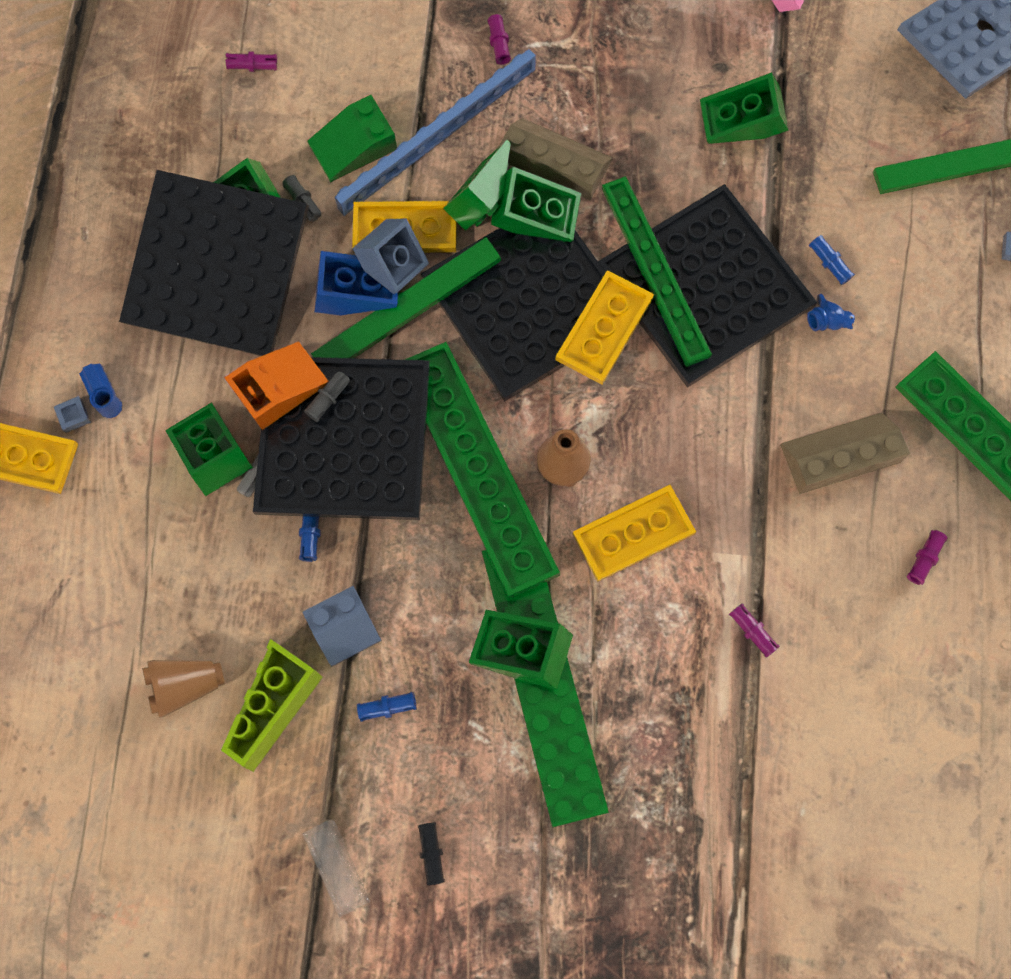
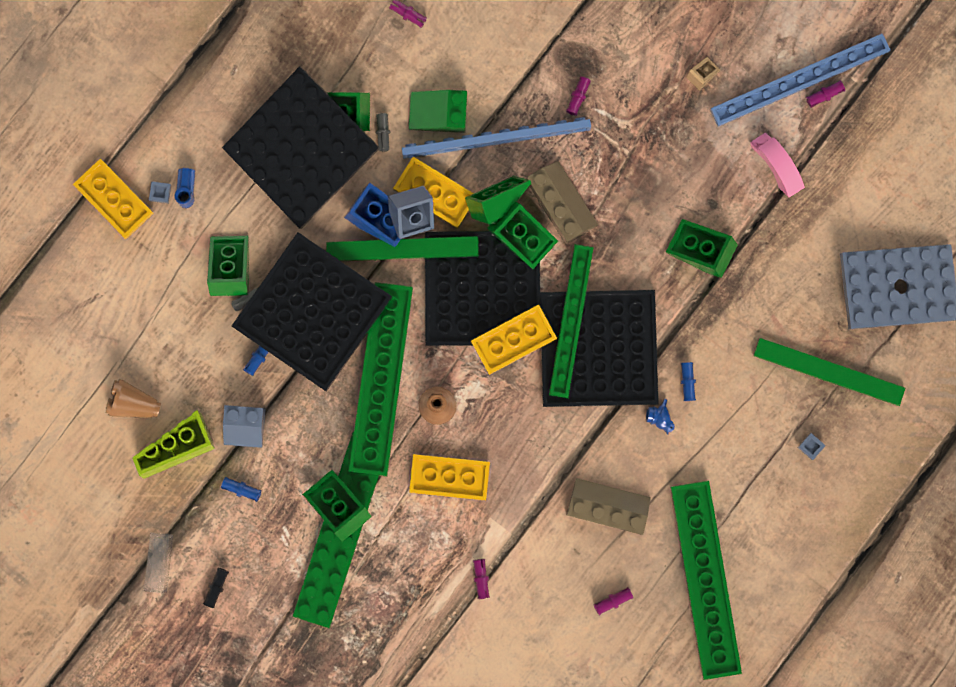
camera: 30 degrees right, 10 degrees up
(276, 383) = (291, 256): orange slope -> none
(327, 396) = (316, 282): dark grey axle -> none

